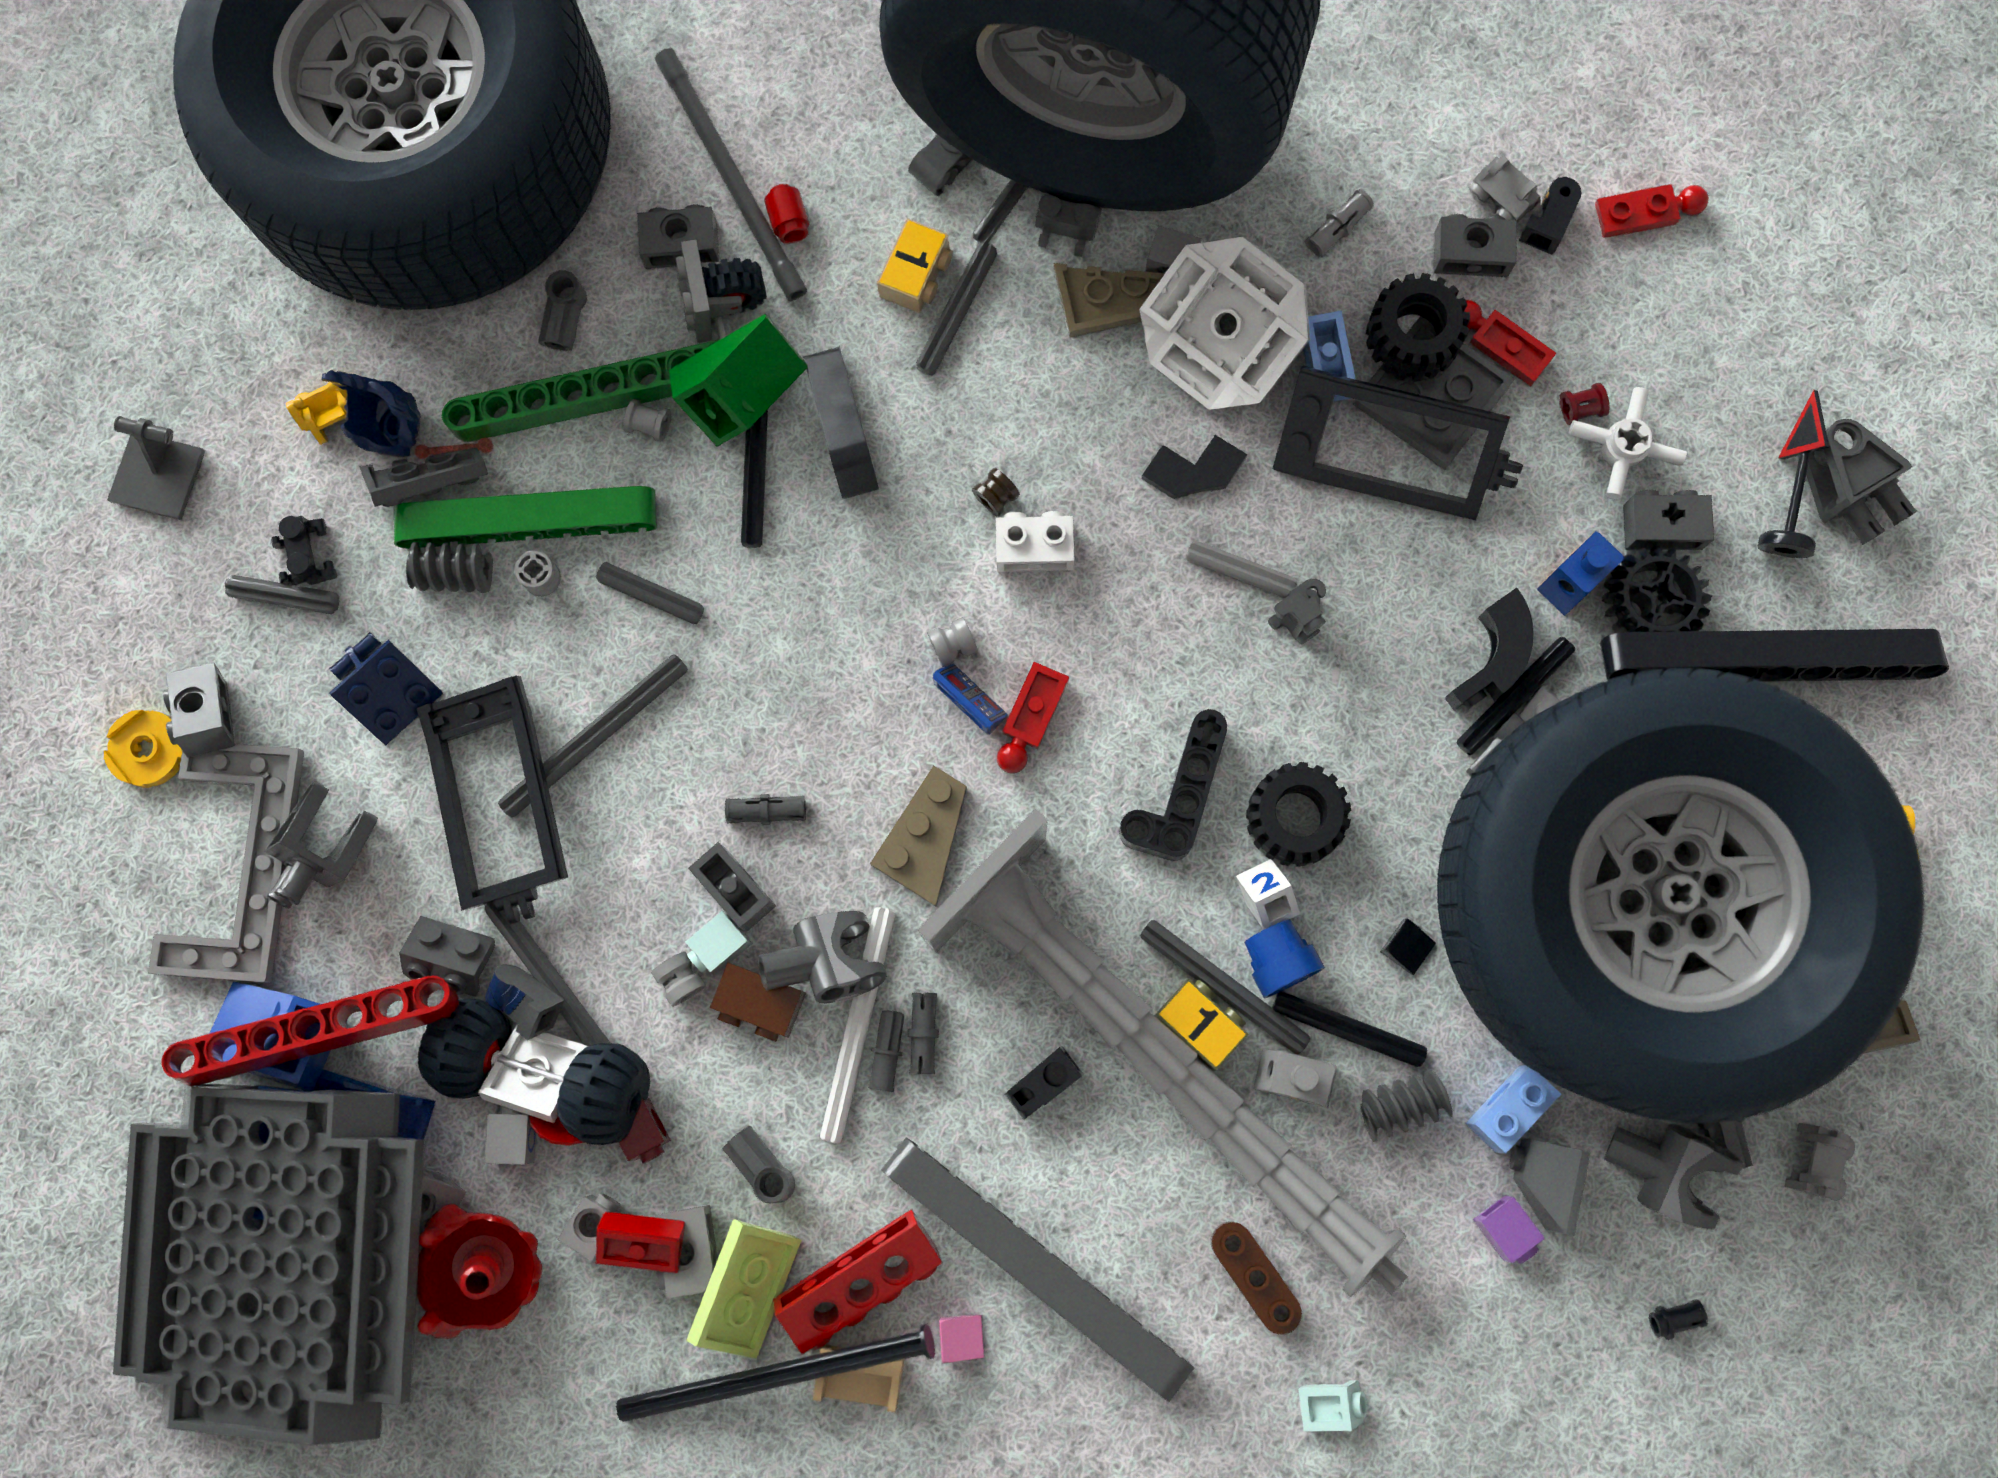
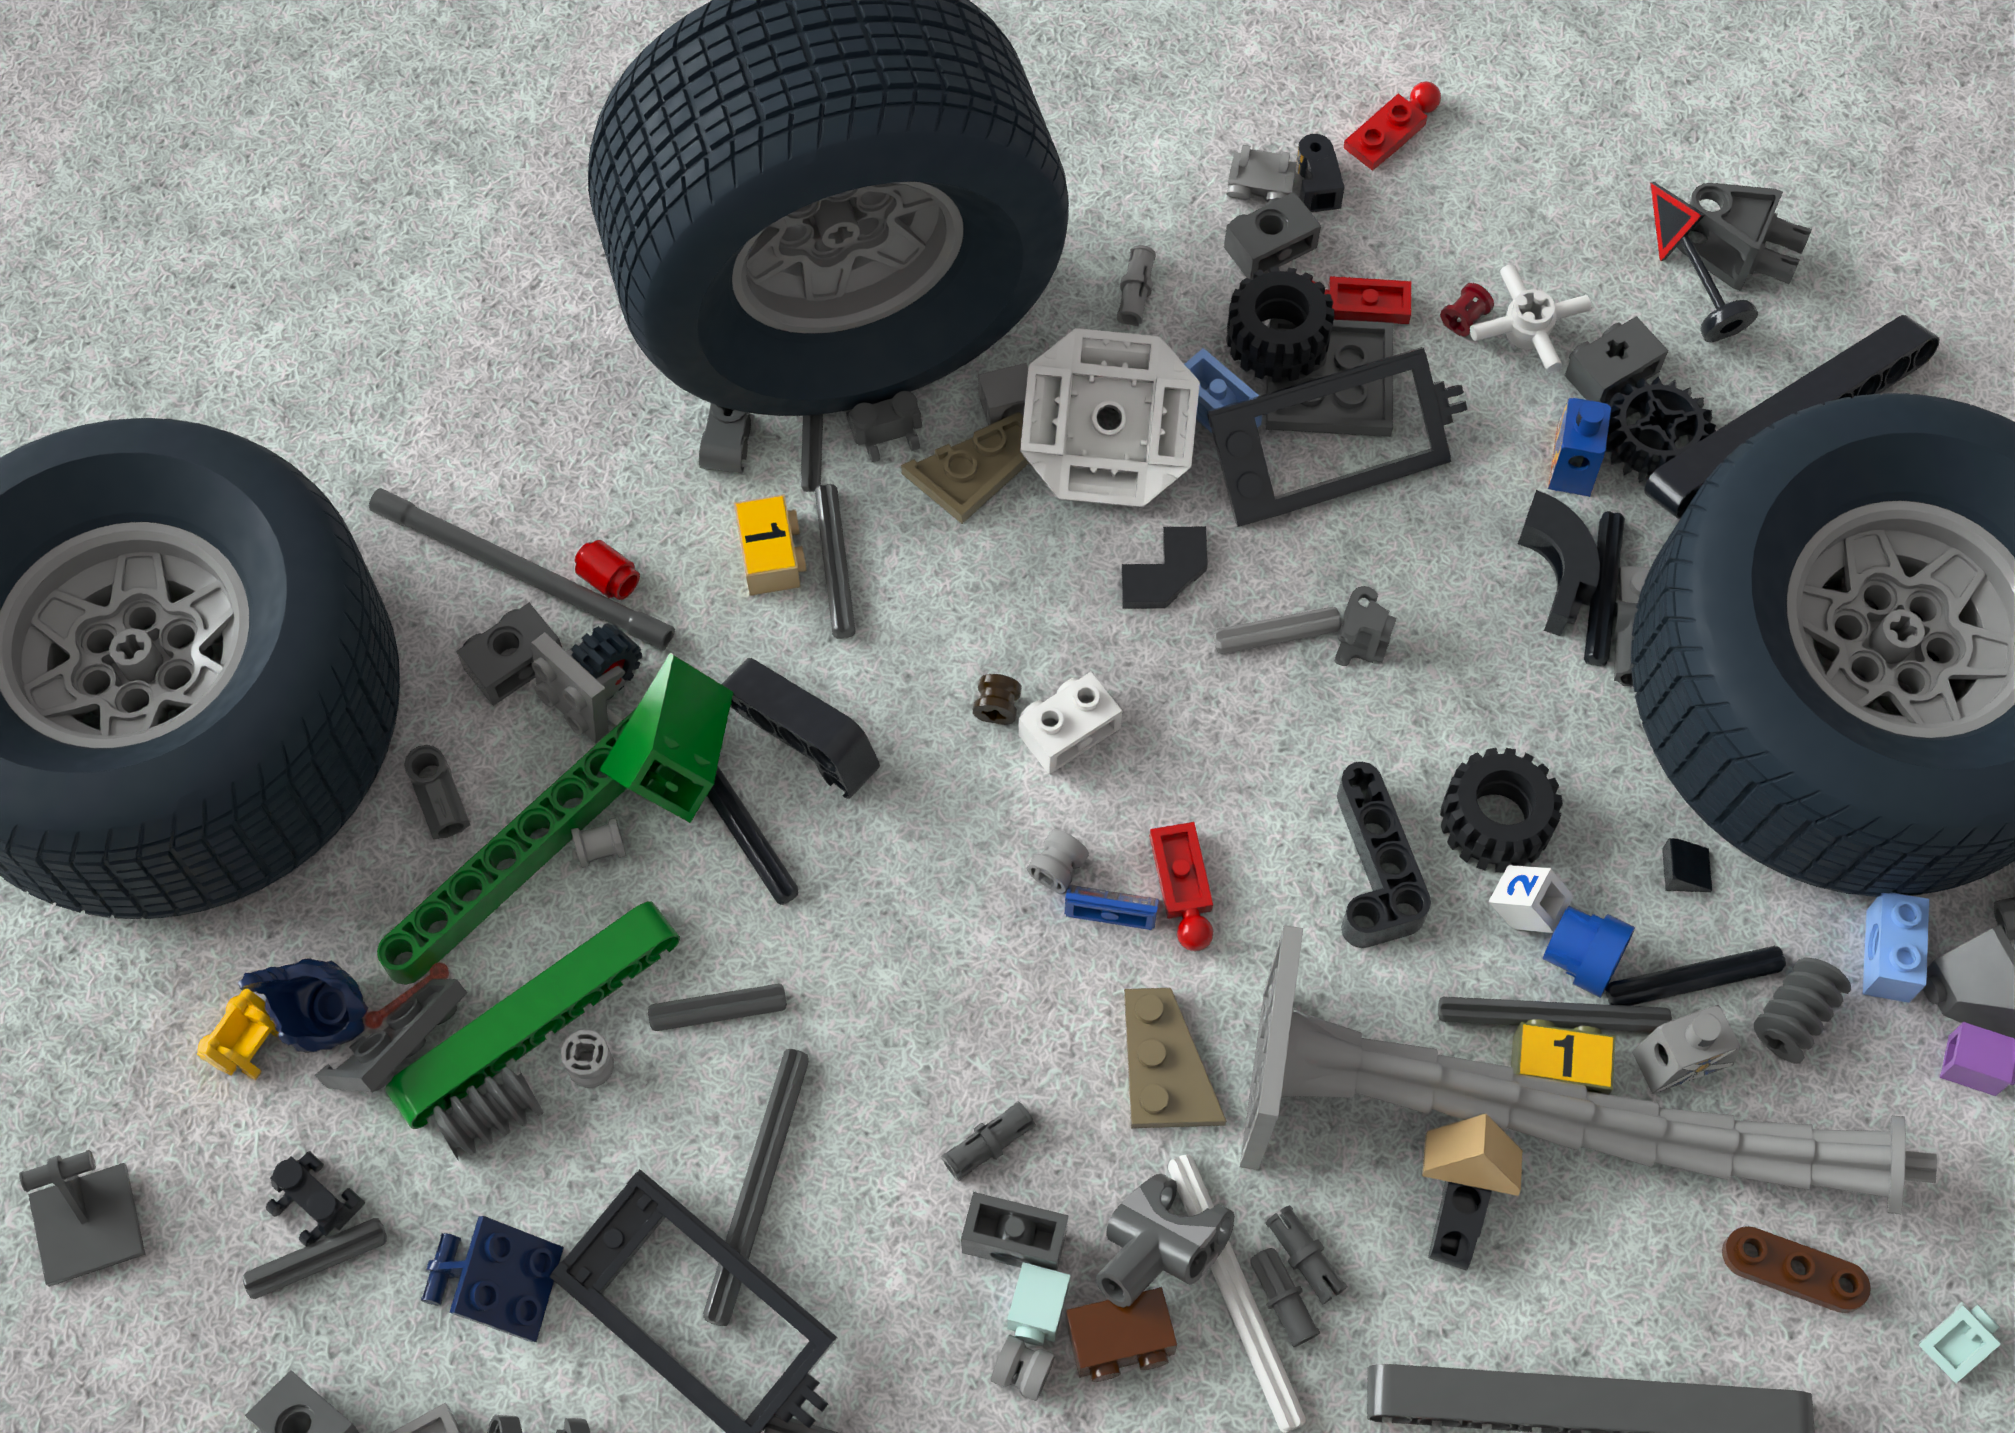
camera: 40 degrees left, 15 degrees down
(1079, 1050) = (1474, 1155): none -> tan slope

